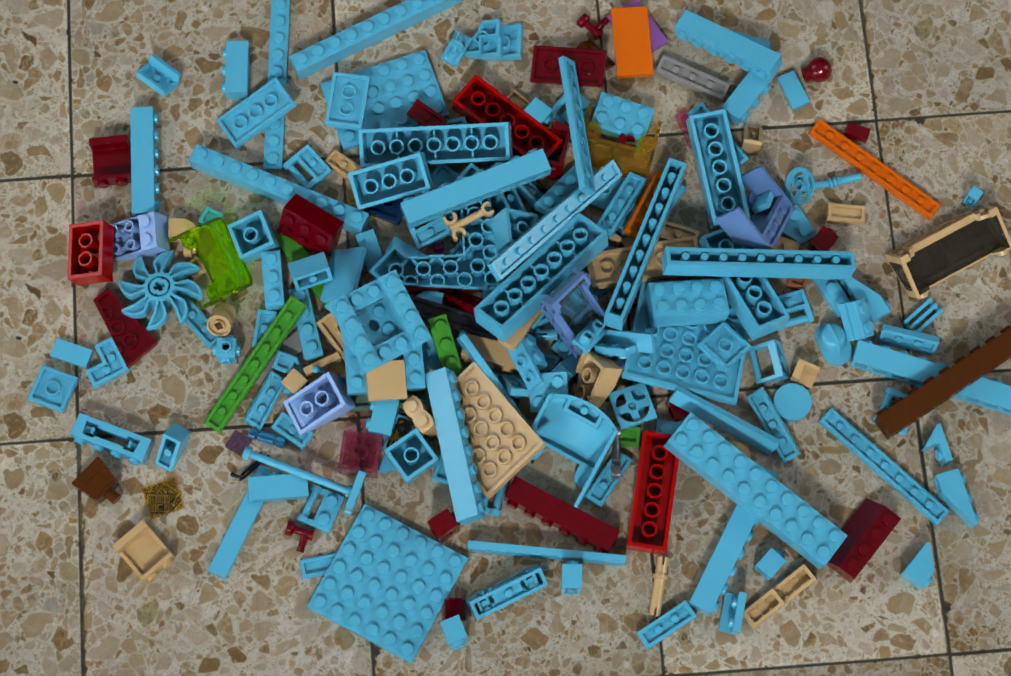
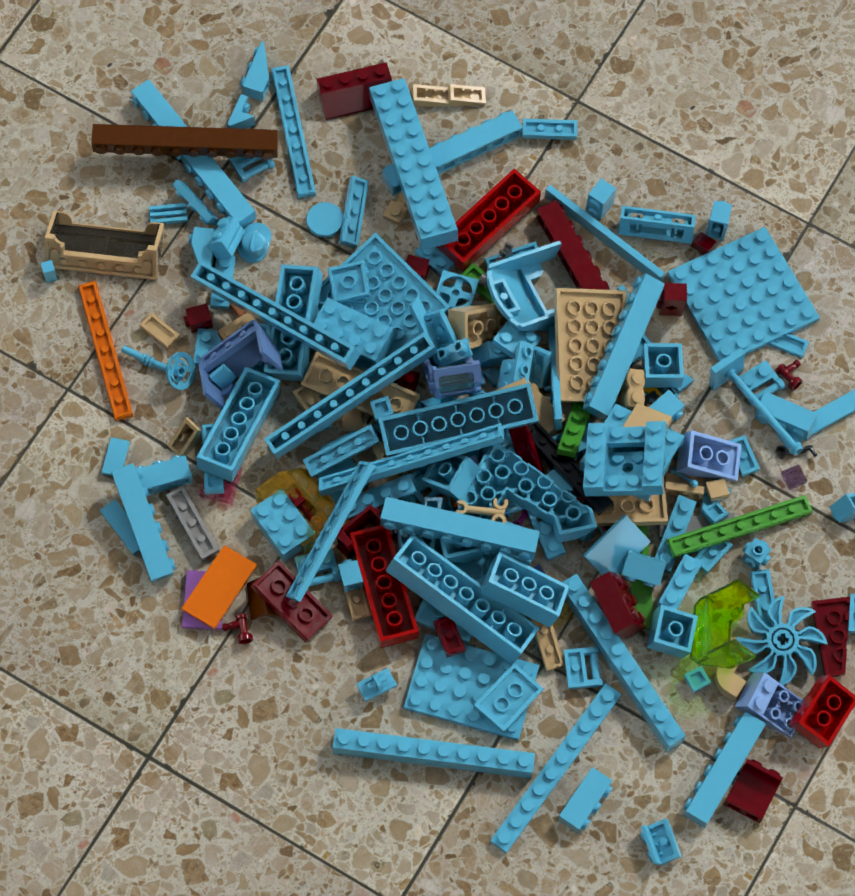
camera: 145 degrees left, 5 degrees down
(221, 319) = (748, 573): tan wheel -> none
(256, 112) = (595, 746): medium azure tile -> none
(264, 401) = (750, 495): medium azure tile -> none
(267, 438) = (768, 466): dark azure axle -> none
(361, 453) = (702, 397): clear pink brick -> none
(369, 241) = (576, 561): medium azure slope -> none
(497, 41) = (333, 671): medium azure slope -> none
(613, 252) = (381, 407): none -> medium azure plate
(637, 216) = (332, 433): orange plate -> none
(659, 577) = (530, 162): tan pin -> none
(724, 420) = (393, 231): medium azure tile -> none
(732, 613) = (493, 102): medium azure bracket -> none
(770, 563) = (438, 118): medium azure brick -> none
(778, 361) = (313, 249): medium azure tile -> none
(795, 302) = (263, 287): medium azure plate -> none
(804, 373) = (298, 233): tan panel -> none
(817, 70) = (82, 457): dark red piece -> none
(857, 132) = (94, 387): dark red piece -> none
(920, 568) = (327, 45): medium azure slope -> none

